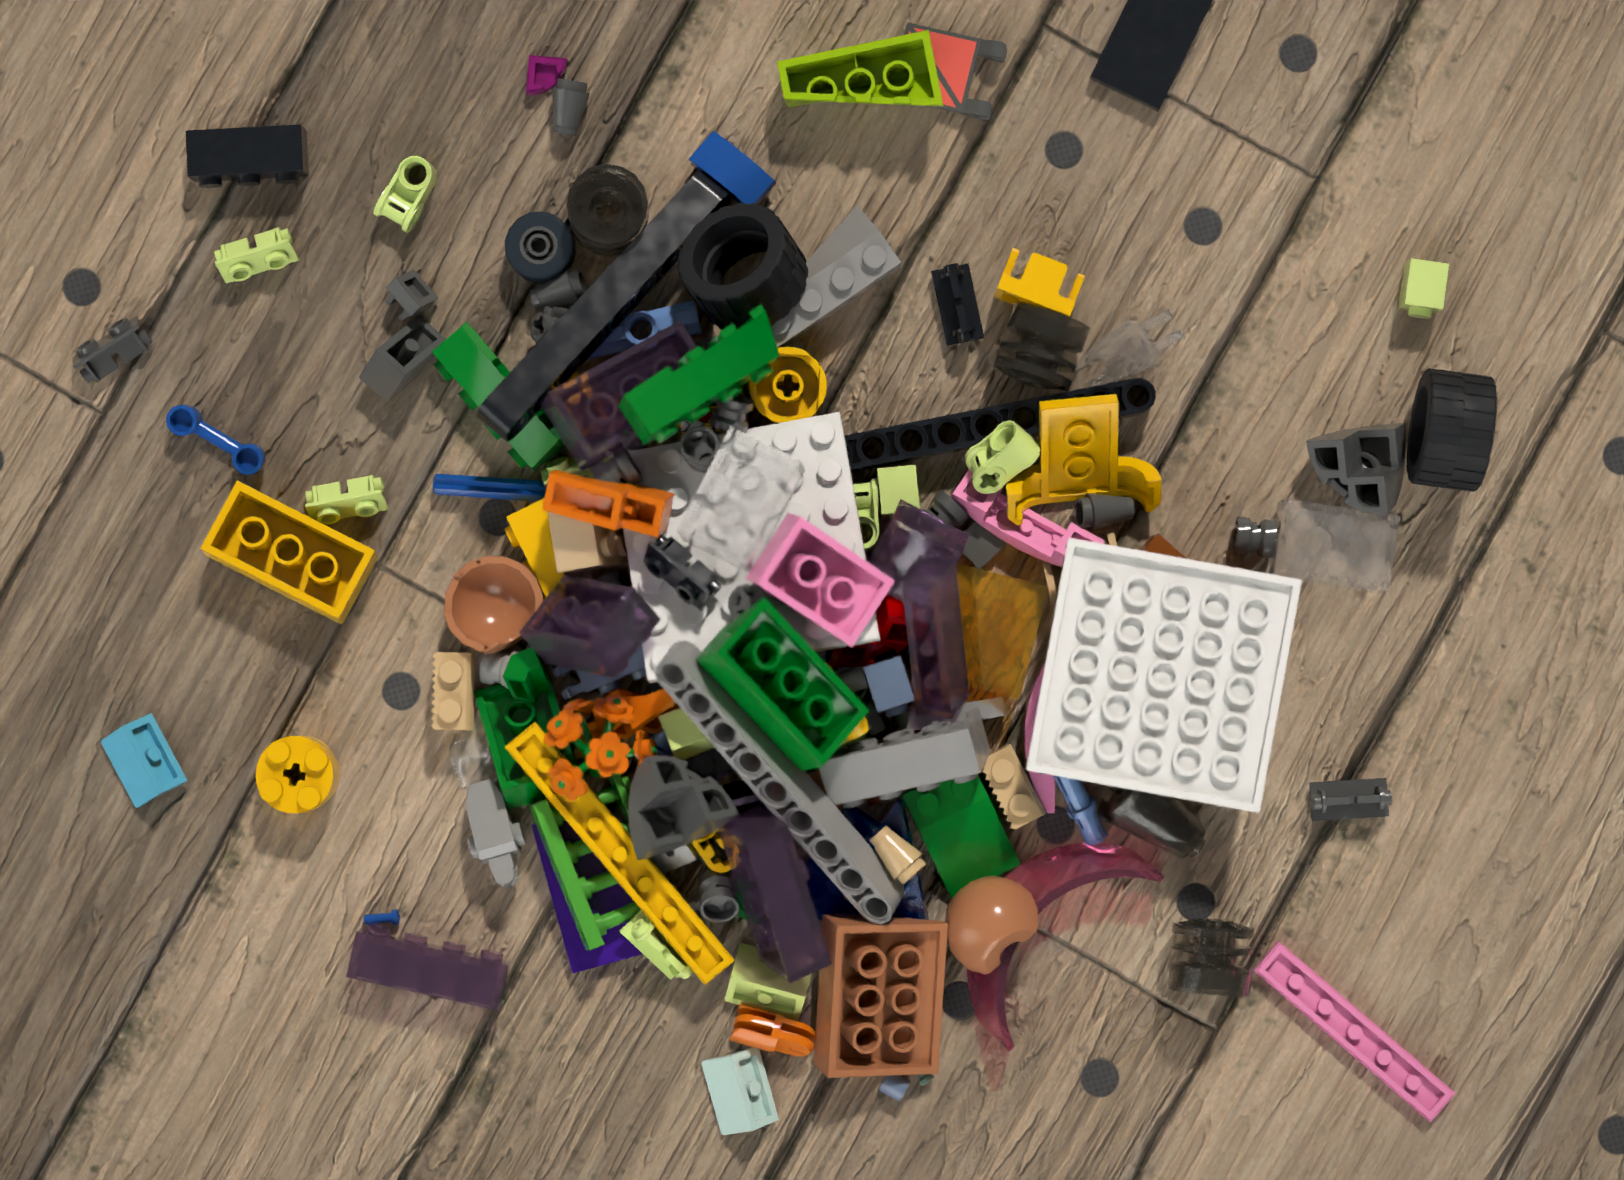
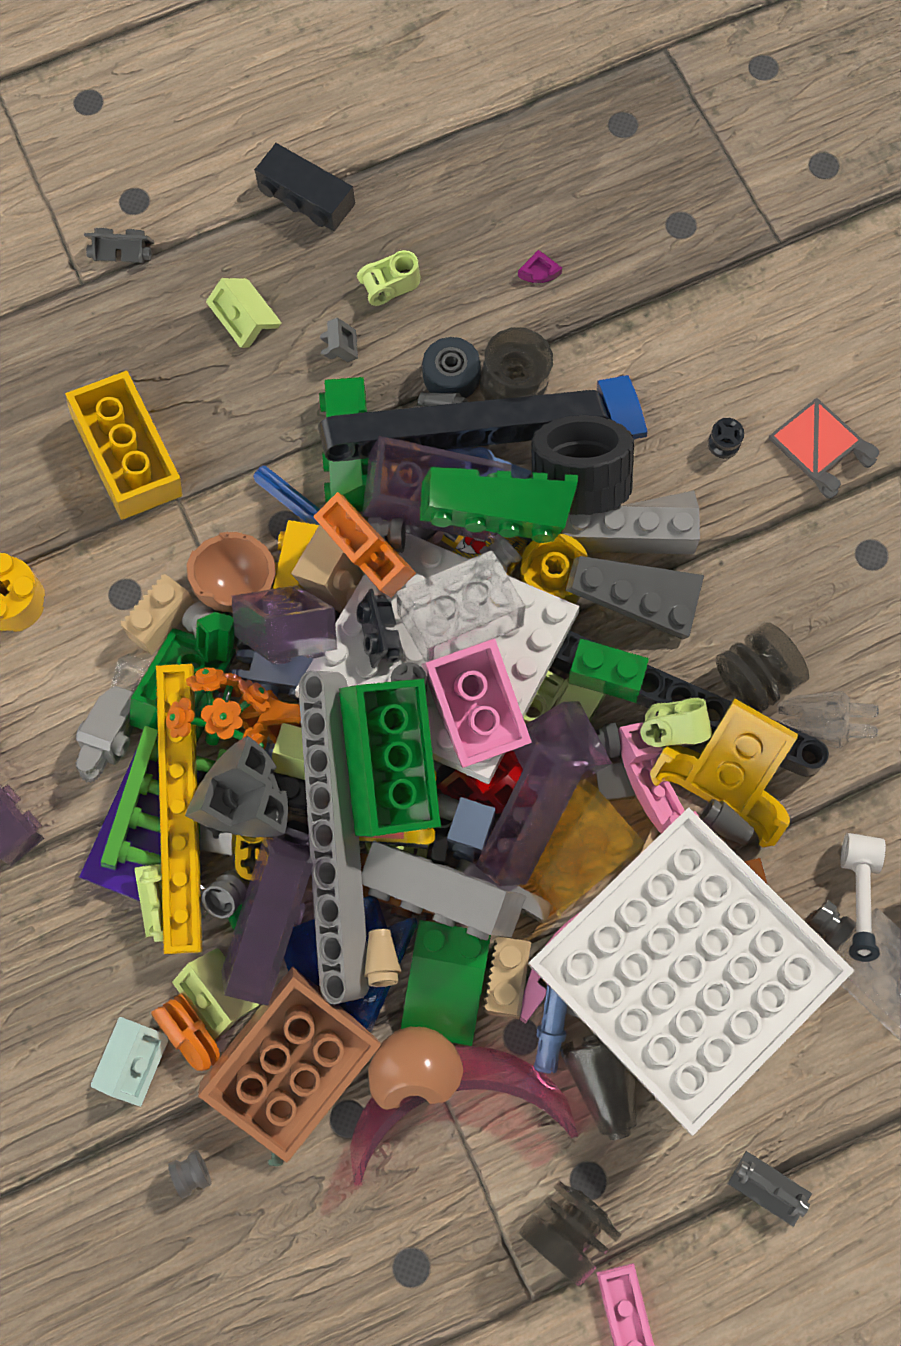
camera: 35 degrees right, 15 degrees down
(188, 420) = (131, 323): blue bar -> none
(239, 262) = (255, 253): yellowish green hinge -> none
(288, 329) = (241, 310): none -> yellowish green panel
(363, 499) = (181, 438): yellowish green hinge -> none
(401, 358) = (298, 374): dark grey slope -> none
(568, 105) = (541, 295): dark grey cone -> none
(697, 443) = (457, 550): dark grey wheel -> none
(852, 123) = (729, 430): none -> black wheel
(863, 1142) = (189, 1174): none -> flat silver wheel
(875, 72) = (775, 402): lime wedge -> none
(886, 349) = (643, 593): none -> dark grey wing
(894, 1086) = (247, 1148): sand blue piece -> none
(908, 454) = (608, 670): none -> green brick
(957, 304) = (719, 603): black hinge -> none
(1038, 284) = (792, 617): yellow panel -> none
(1242, 455) = (864, 857): none -> white piece

